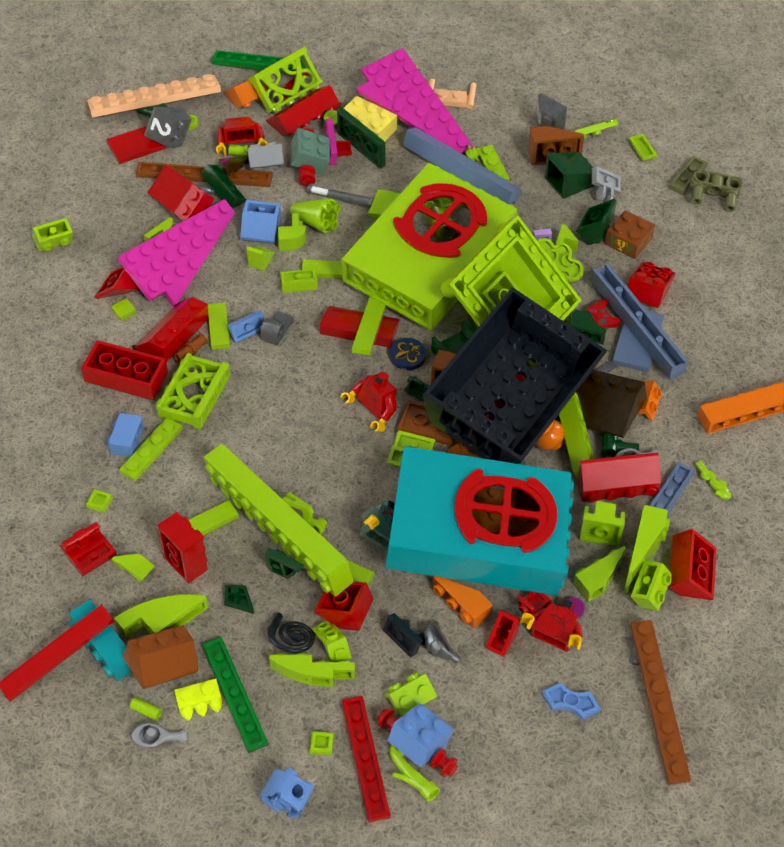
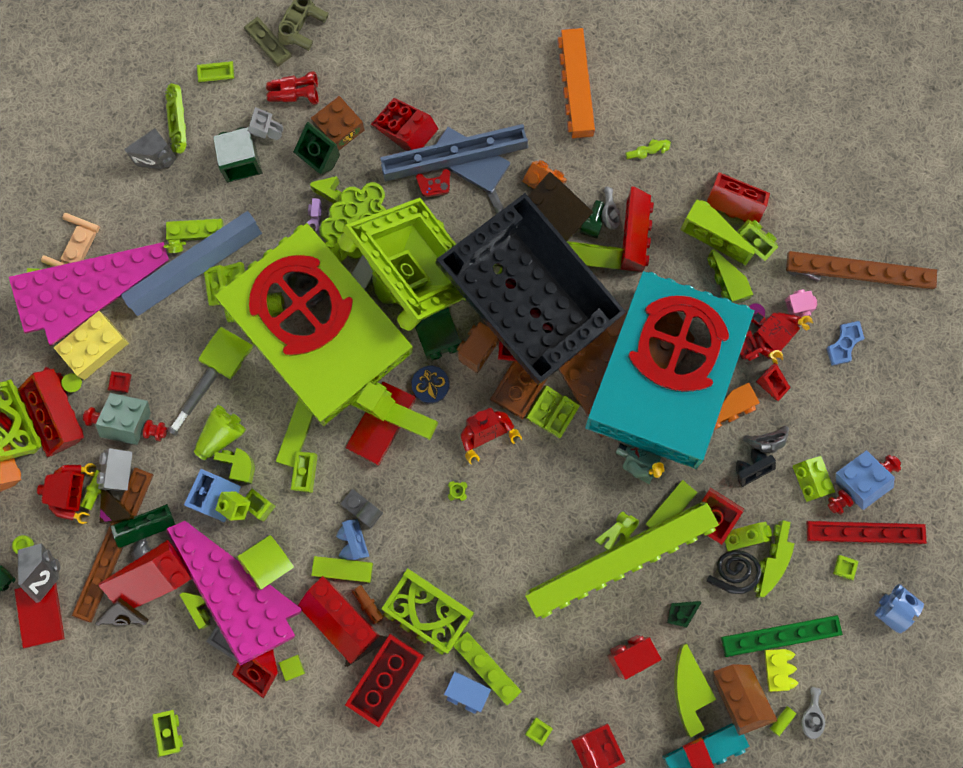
camera: 75 degrees left, 25 degrees up
(134, 564) = (625, 707): lime slope -> none
(146, 190) = (121, 614): none -> tile
(211, 268) = (265, 562): none -> lime slope
(214, 518) = (589, 627): lime tile -> none
(254, 231) = (232, 505): none -> lime brick
(281, 564) = (665, 565): dark green wing -> none
(312, 388) = (462, 489): none -> lime plate
(329, 132) = (103, 392): dark pink tile -> none
(361, 138) = (120, 358): dark green tile -> none
(374, 300) = (376, 400): none -> lime brick
(410, 775) = (894, 496): lime plant -> none
(416, 387) = (483, 380): dark green hinge -> none
(552, 140) = (193, 161): dark orange slope -> none
(586, 325) = (444, 205): dark green arch -> none
(598, 645) = (801, 303): none -> bright pink brick
(602, 525) = (684, 260): lime panel -> none
(651, 199) = (287, 89): none -> red piece
(673, 487) = (662, 199): sand blue tile -> none

